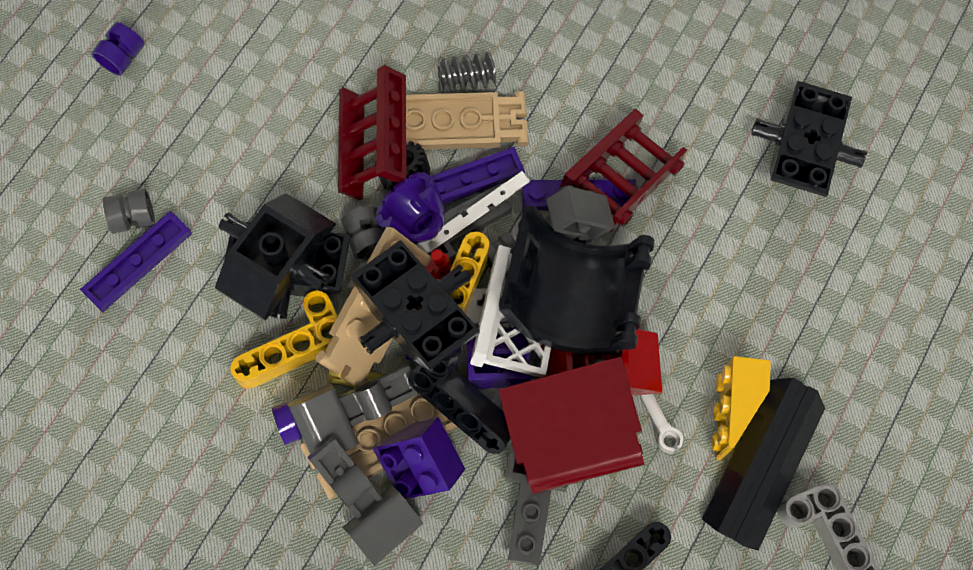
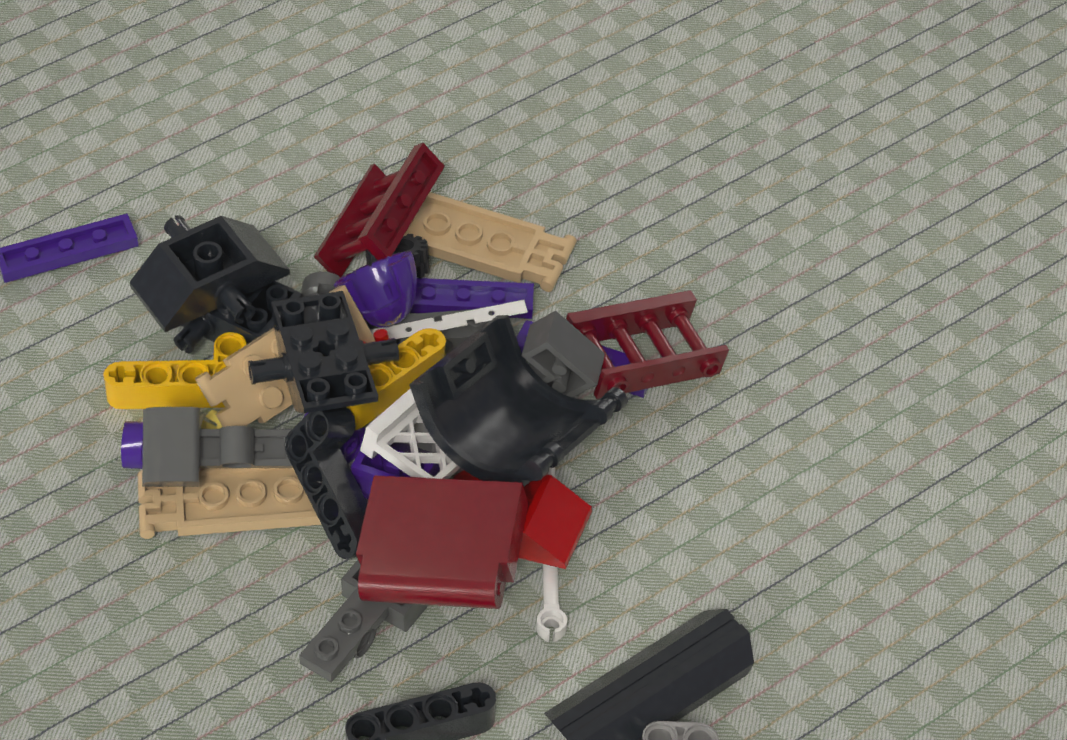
camera: 25 degrees right, 20 degrees down
(118, 48) = (154, 54): dark purple wheel -> none
(127, 211) = (78, 198): dark grey wheel -> none
(378, 520) = (180, 569): dark grey plate -> none
(420, 459) = (257, 526): dark purple slope -> none
(466, 72) = (519, 198): dark grey piece -> none
(741, 392) = (647, 607): yellow slope -> none
(810, 139) = (884, 391): black slope -> none

